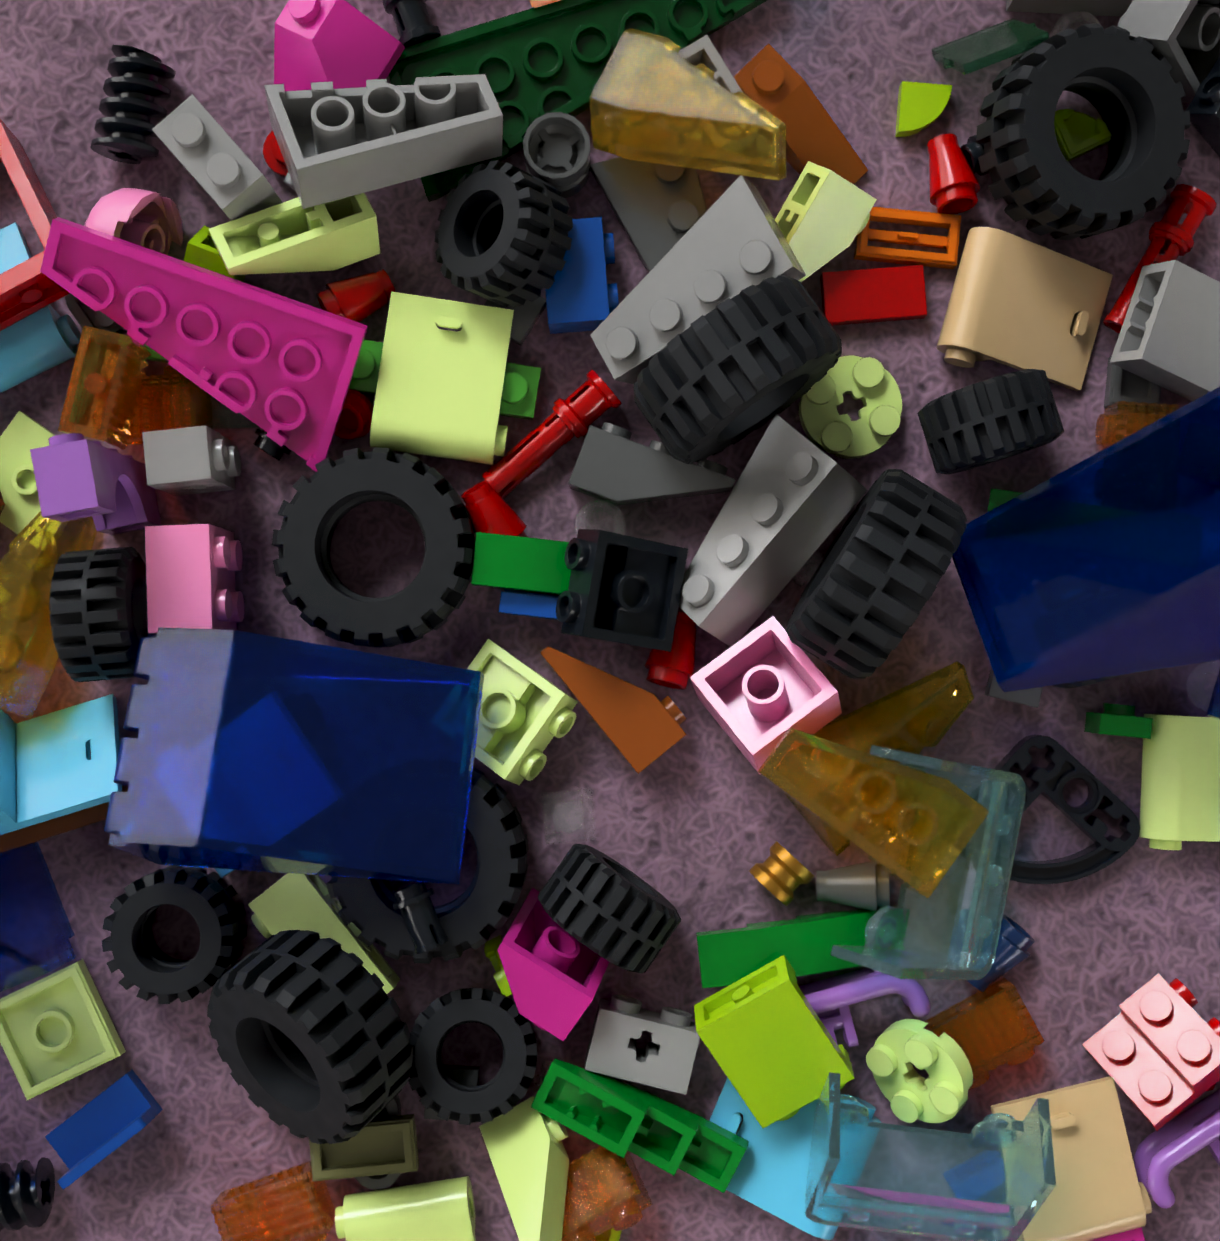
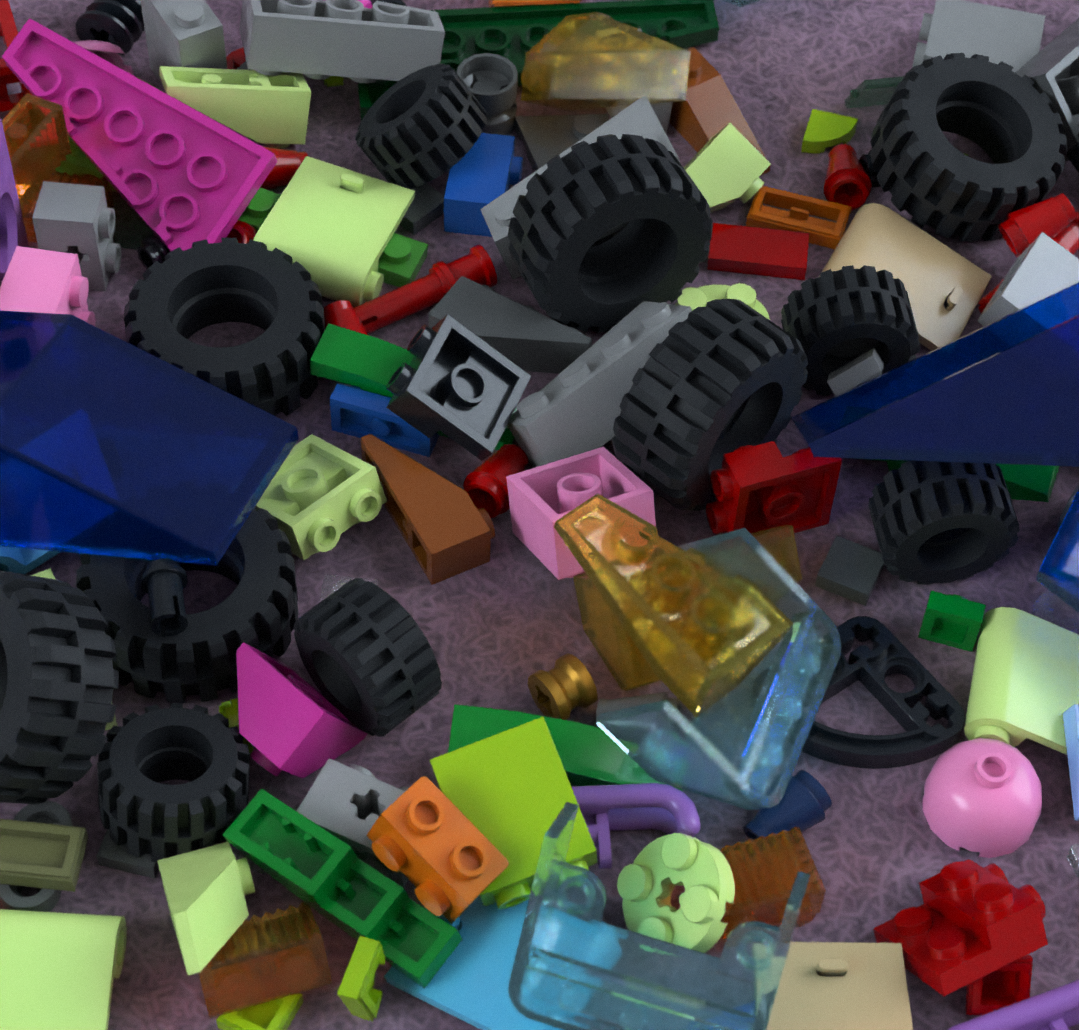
camera: 10 degrees right, 35 degrees down
(677, 1200) = (358, 981): none -> lime tile
(720, 1105) = (436, 849): none -> orange bracket
(933, 638) = (768, 491): none -> red plate
(1002, 478) = (856, 372): none -> light grey tile
(1161, 899) = (983, 797): none -> bright pink cylinder
(1163, 227) = (1027, 223): none -> red cone

